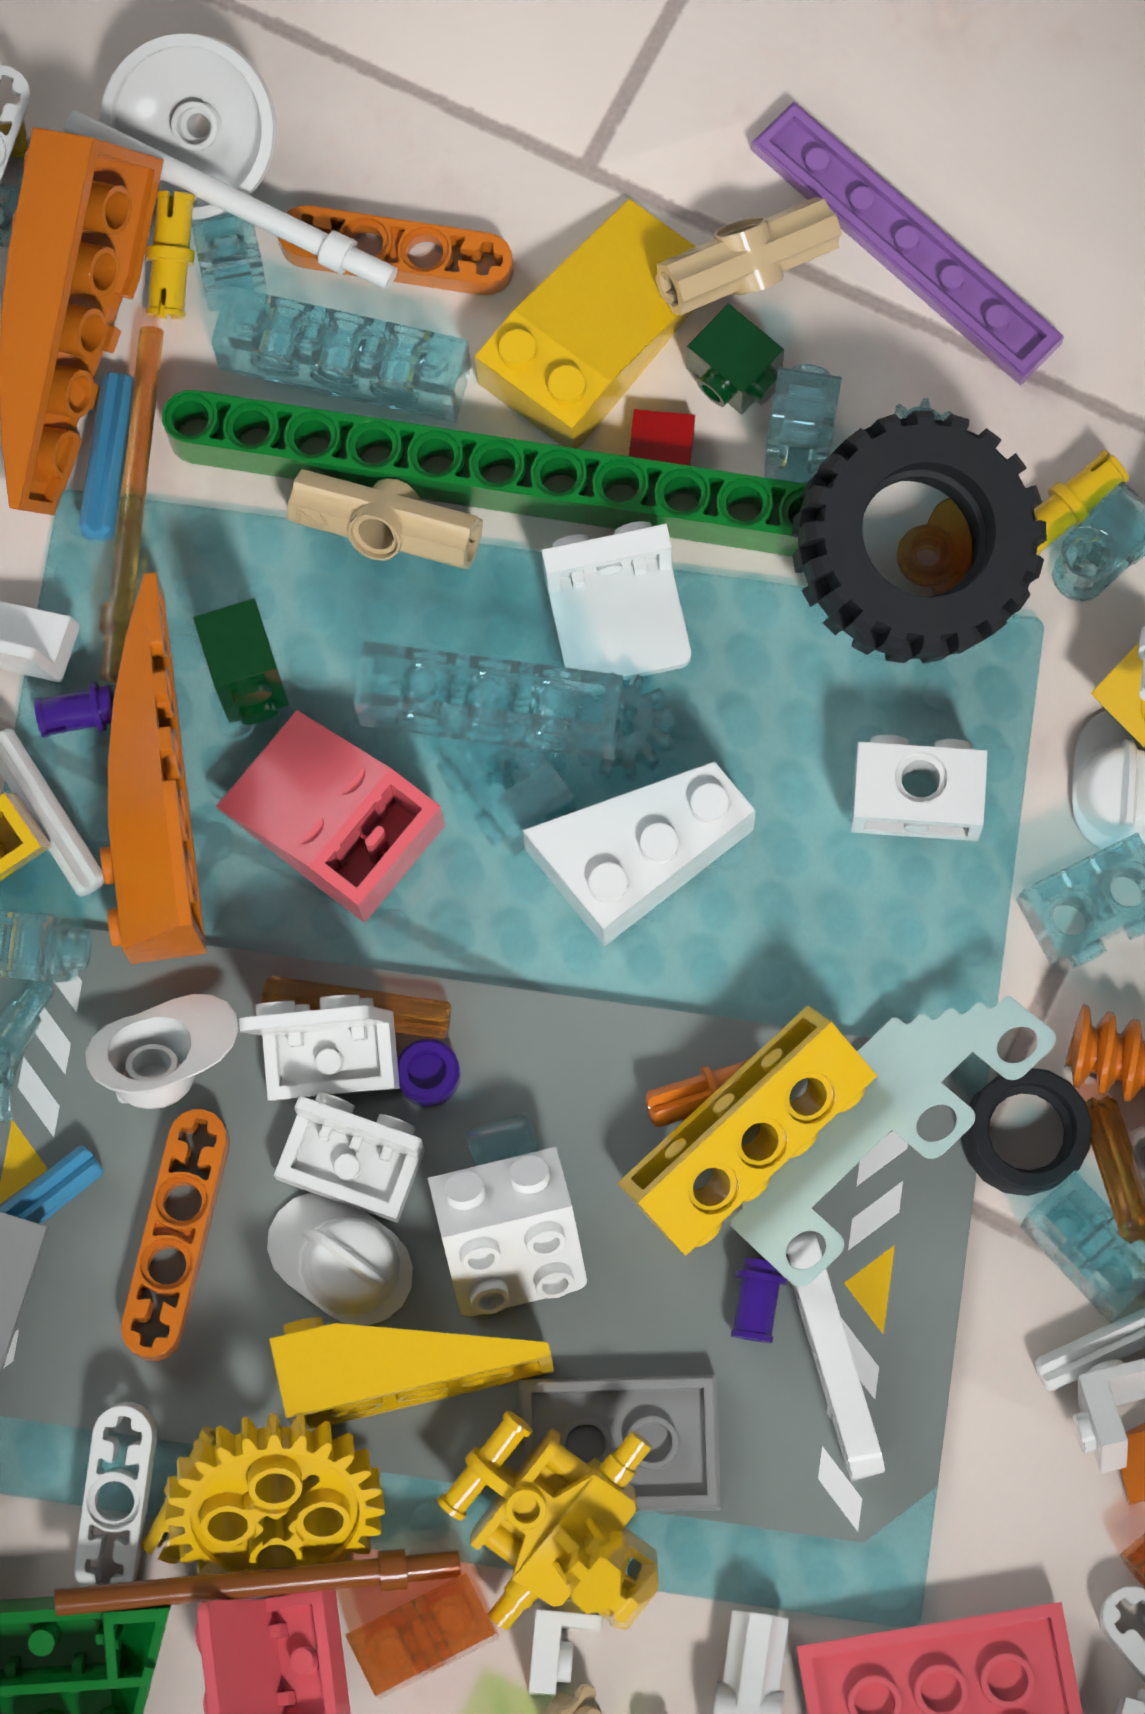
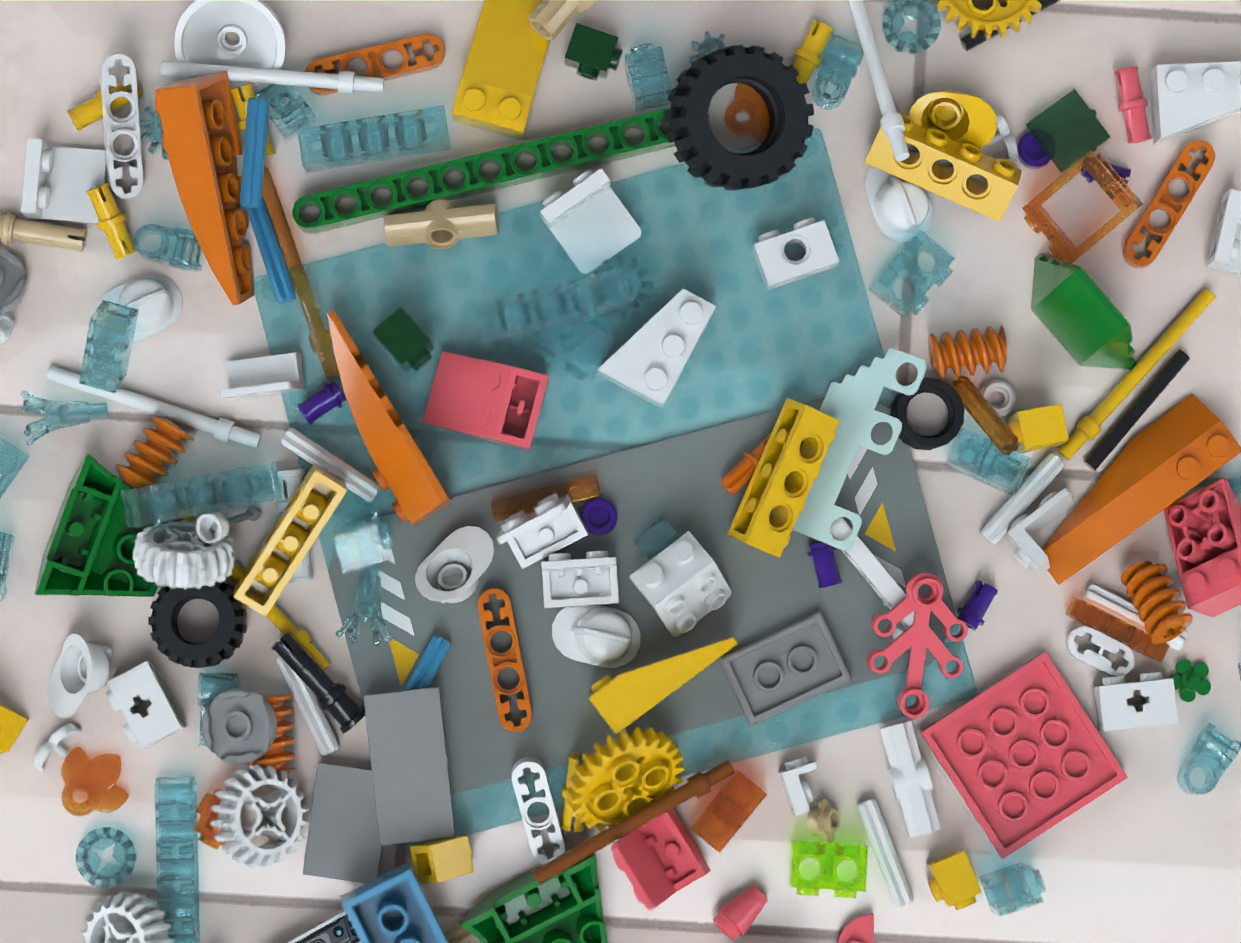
camera: 35 degrees left, 10 degrees up
(148, 296) = (254, 152): none -> dark azure axle
(559, 1525) = (776, 725): yellow piece -> none
(662, 436) = (570, 113): red tile -> none
(858, 1484) = (918, 638): none -> coral plant
(978, 1477) = (977, 605): none -> dark purple pin

